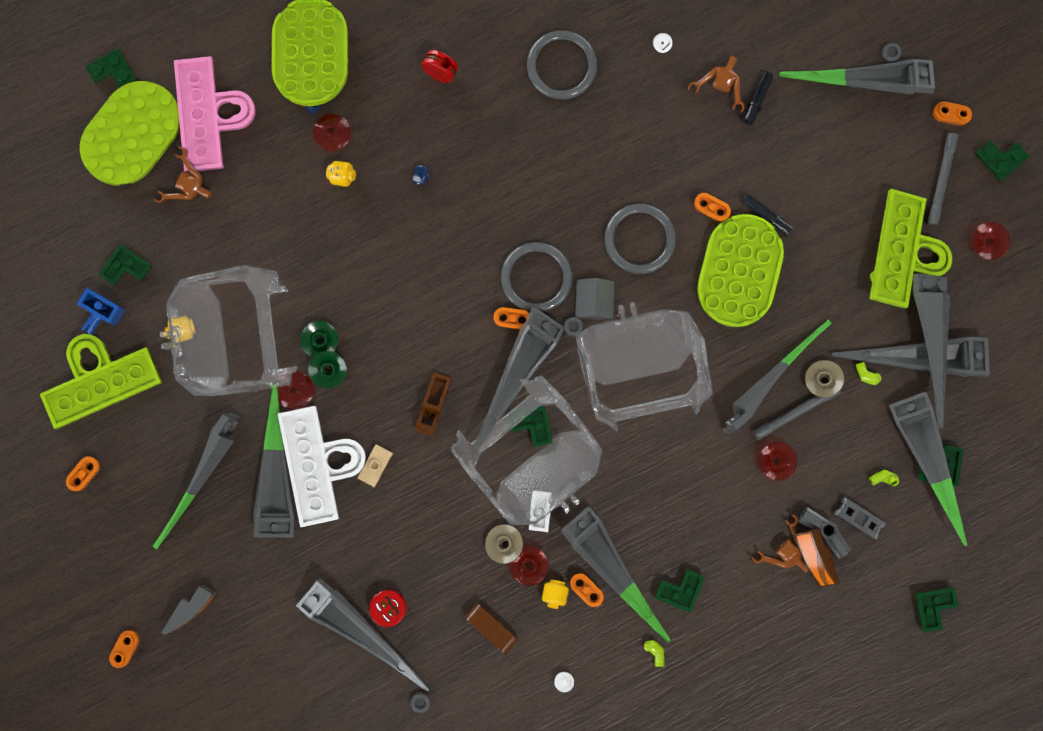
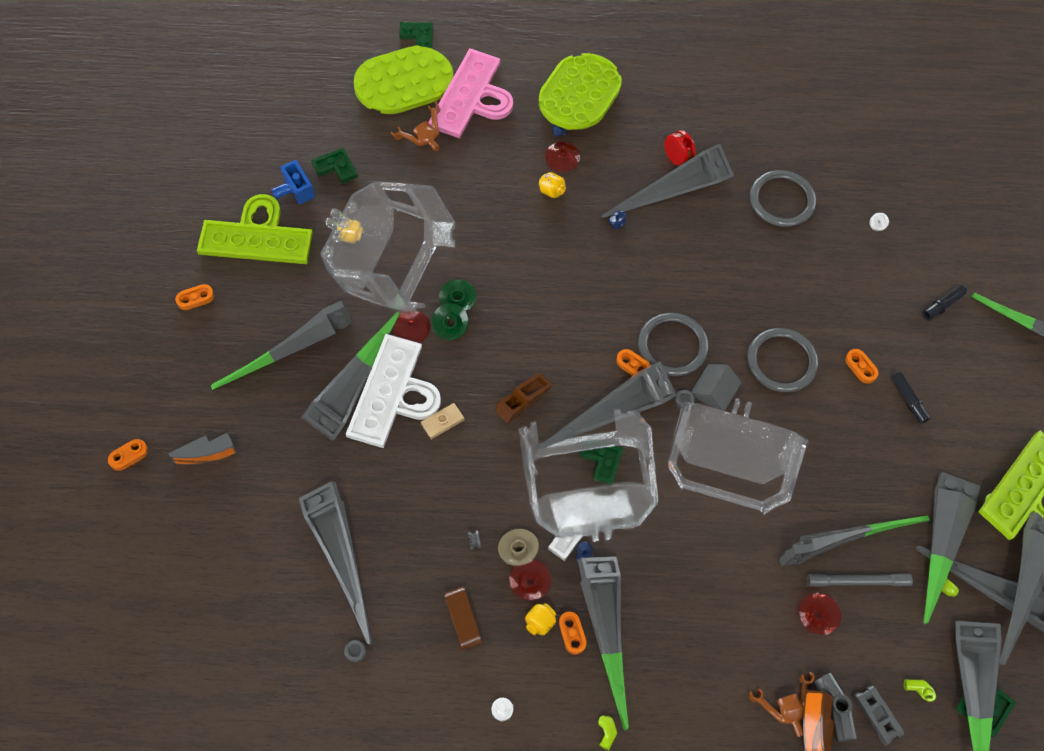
camera: 25 degrees right, 20 degrees down
(388, 608) = (378, 546): red head -> none
(463, 557) = (475, 540): none -> dark grey bush
(469, 84) = (697, 173): none -> dark grey plate
(560, 516) = (584, 550): none -> dark blue piece
(684, 595) = (663, 691): dark green plate -> none
(723, 80) = (918, 274): dark orange piece -> none
(740, 270) = (862, 430): lime plate -> none
(827, 370) = (903, 556): dark tan dish -> none
(847, 304) = (953, 509): none -> dark grey plate

